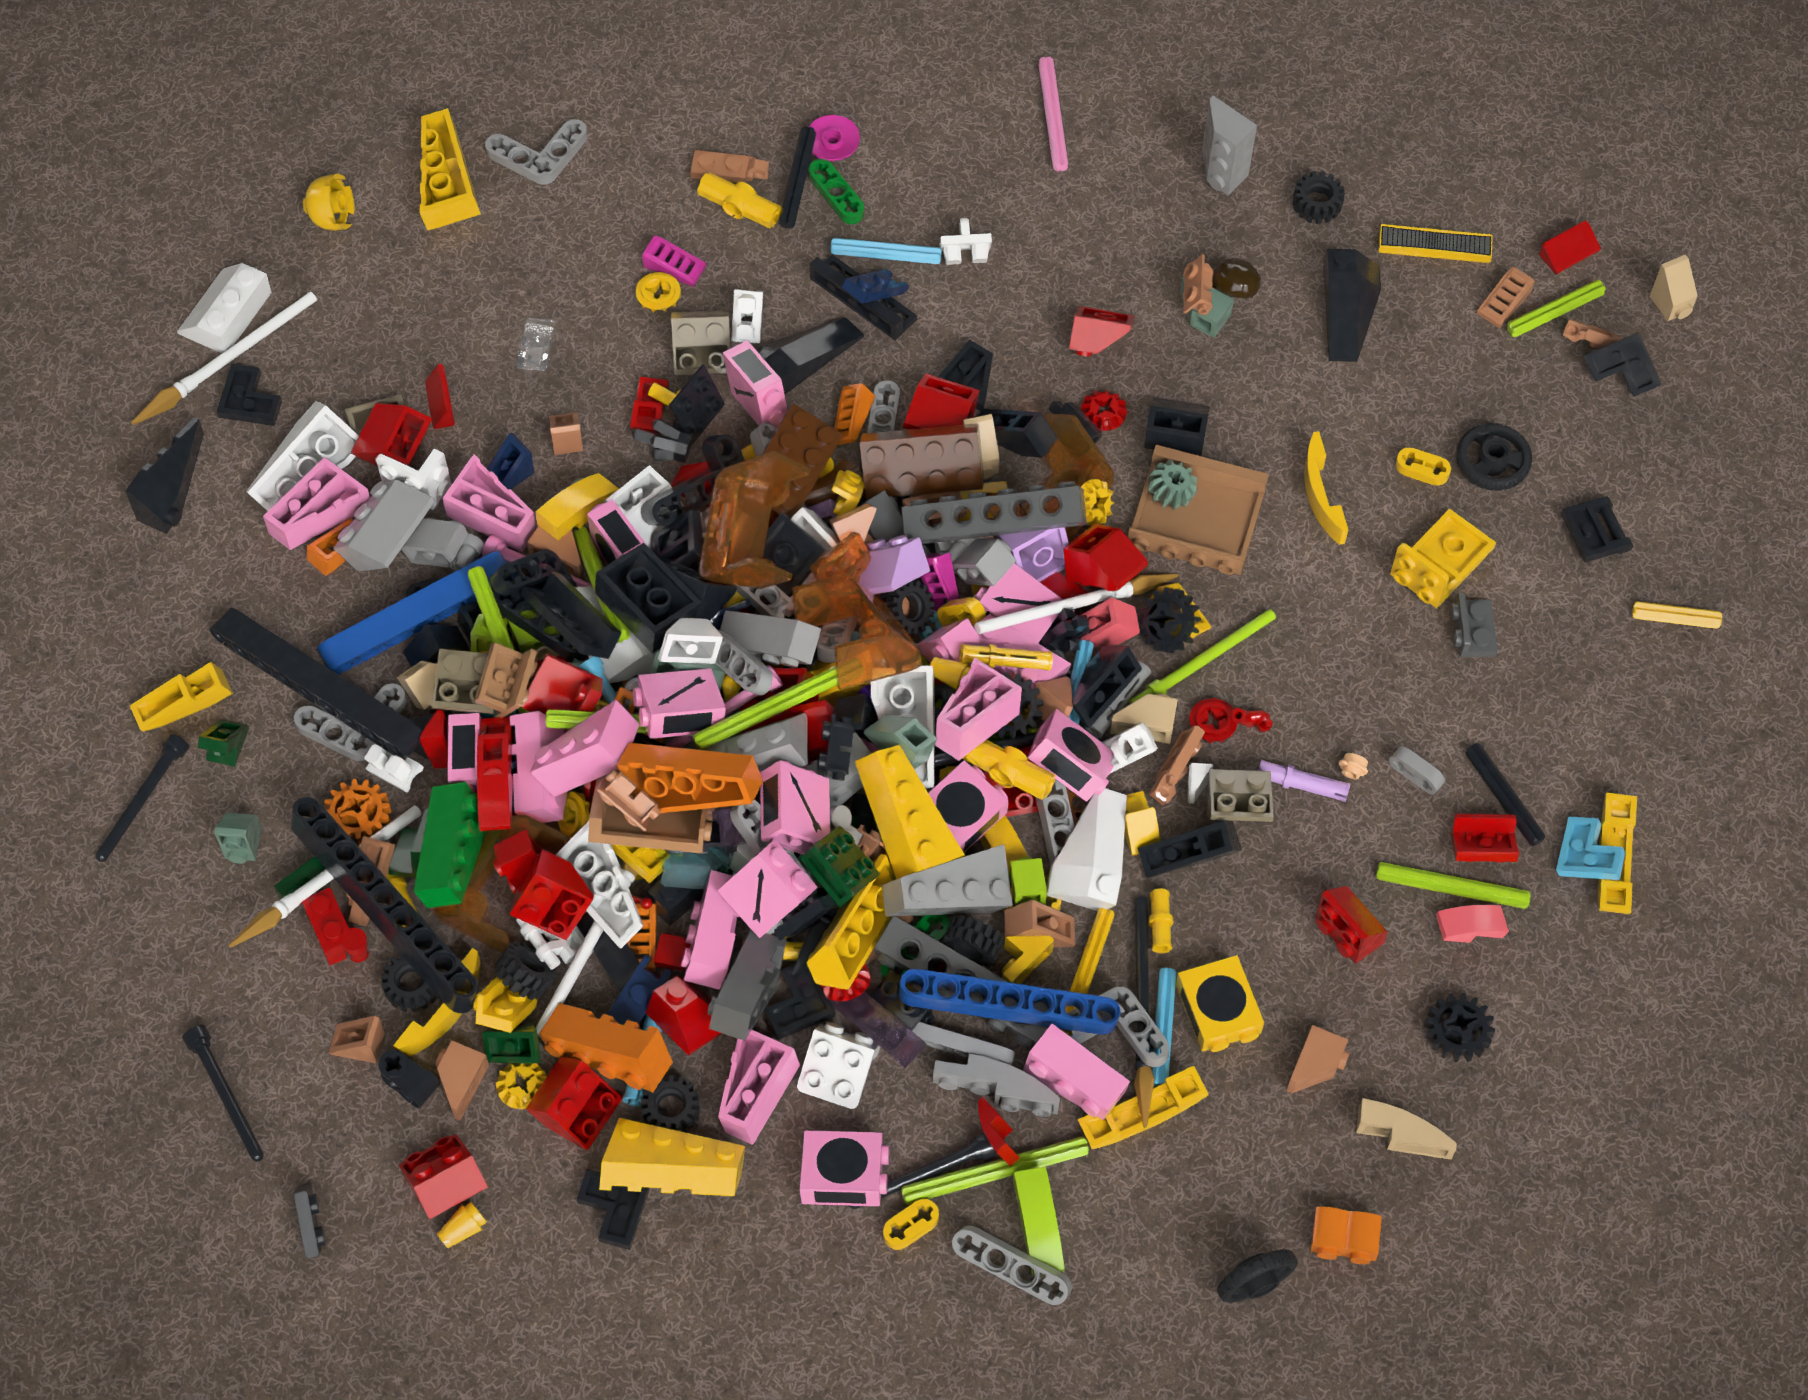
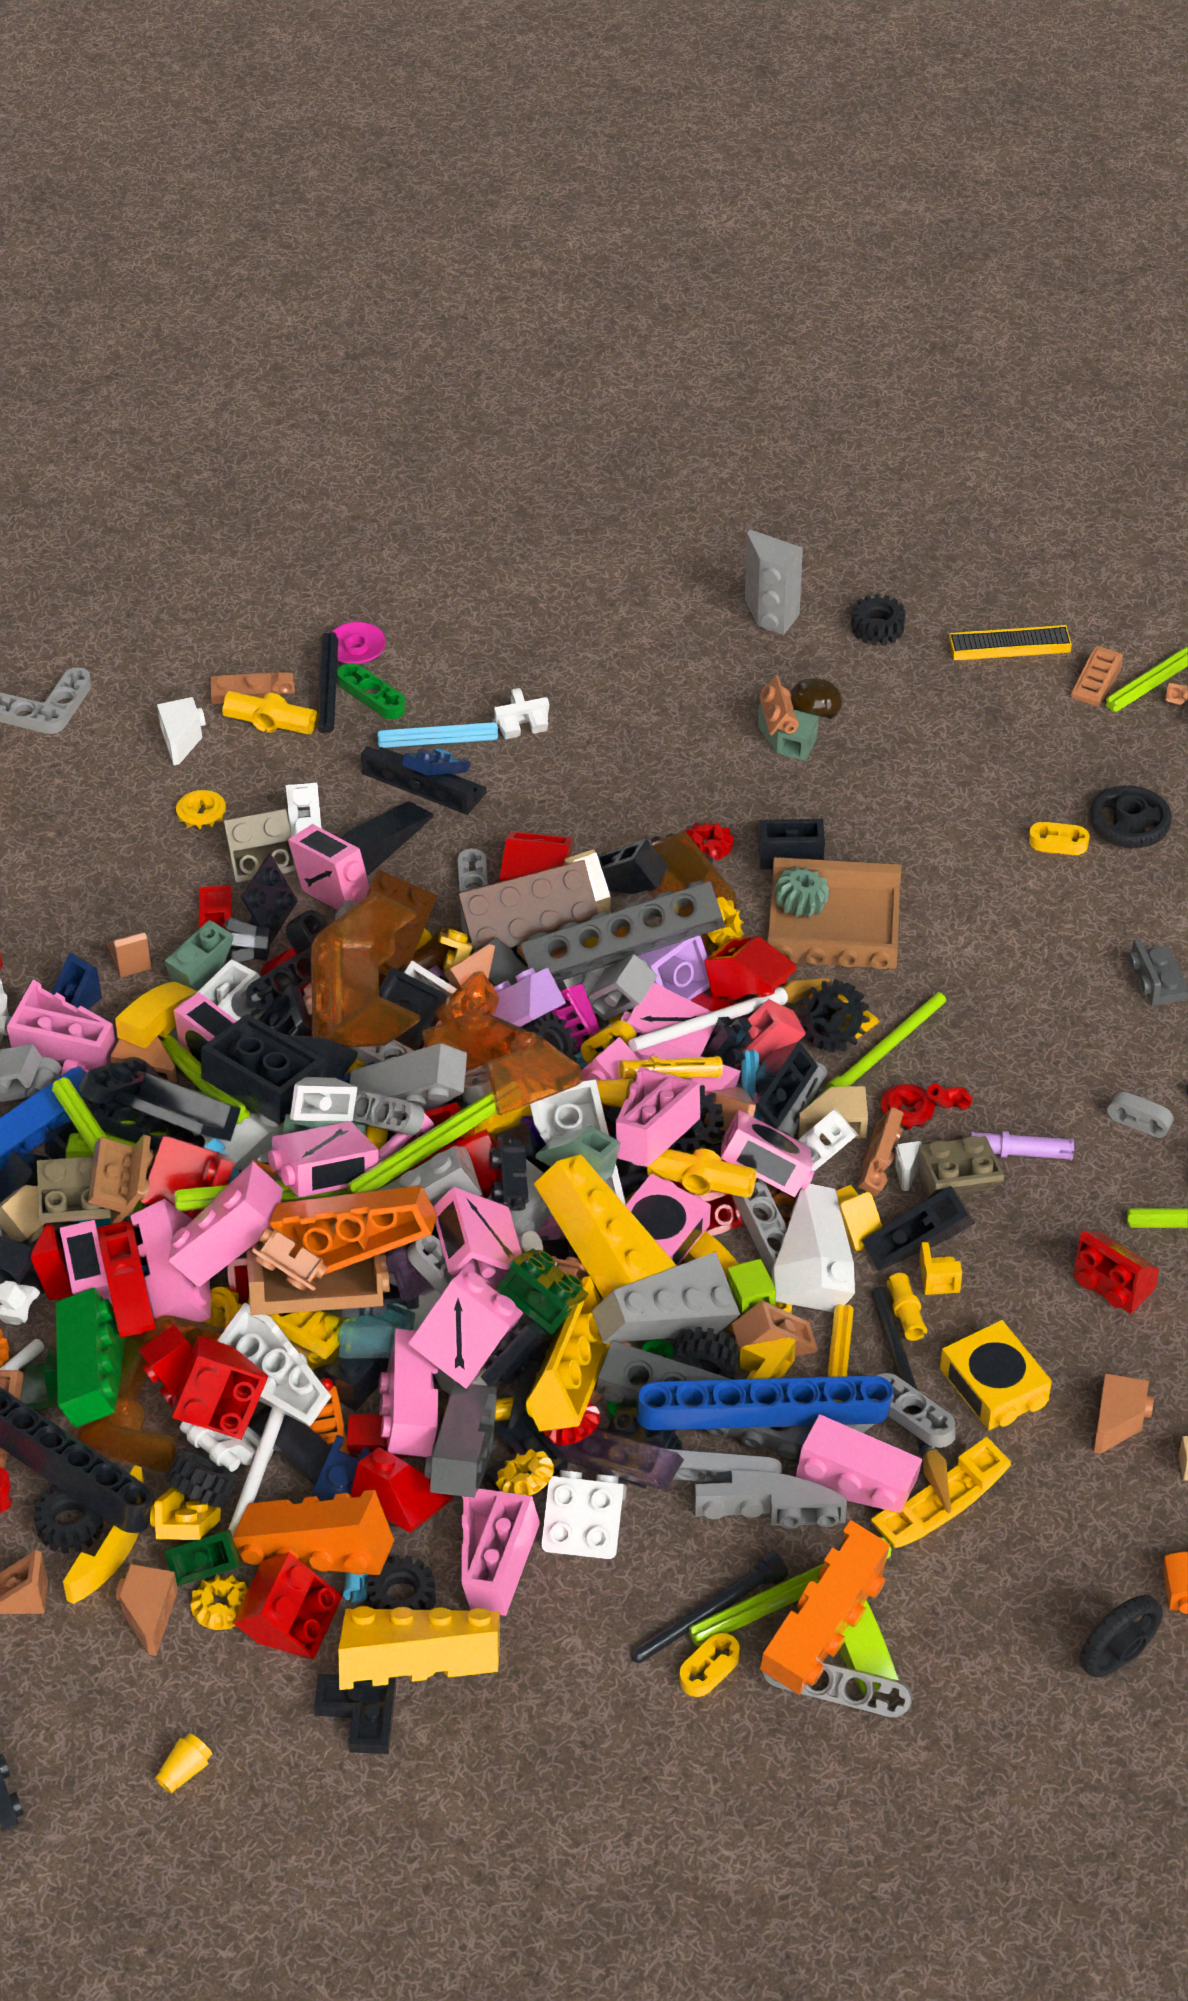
camera: 10 degrees left, 15 degrees down
(411, 1081) = (85, 1617): black piece -> none
(443, 1175) = (149, 1712): slope -> none
(536, 344) = (78, 876): clear slope -> none
(624, 454) = (200, 956): none -> sand green slope
(656, 202) = (180, 726): none -> white slope
(662, 394) = (230, 898): yellow arm -> none
(666, 249) = (194, 769): dark pink slope -> none
(790, 1034) = (514, 1481): none -> yellow gear
(843, 1168) = (618, 1617): bright pink brick -> none
(852, 411) = (440, 877): orange slope -> none
(972, 369) = (559, 820): black wing -> none
(996, 1130) = (785, 1545): red slope -> none
(1013, 1207) = (827, 1609): none -> orange wedge
(1053, 114) = (582, 590): bright pink axle -> none
(1097, 329) = (681, 769): slope -> none
(1164, 1018) = (936, 1391): medium azure axle -> none
(1198, 892) = (939, 1274): none -> yellow panel
(1329, 517) = (976, 897): yellow slope -> none
(1351, 296) = (937, 703): black wedge -> none
(1353, 766) = (1071, 1122): light nougat plate -> none
(1441, 558) = (1103, 916): yellow bracket -> none
(1569, 247) = (1147, 624): red slope -> none

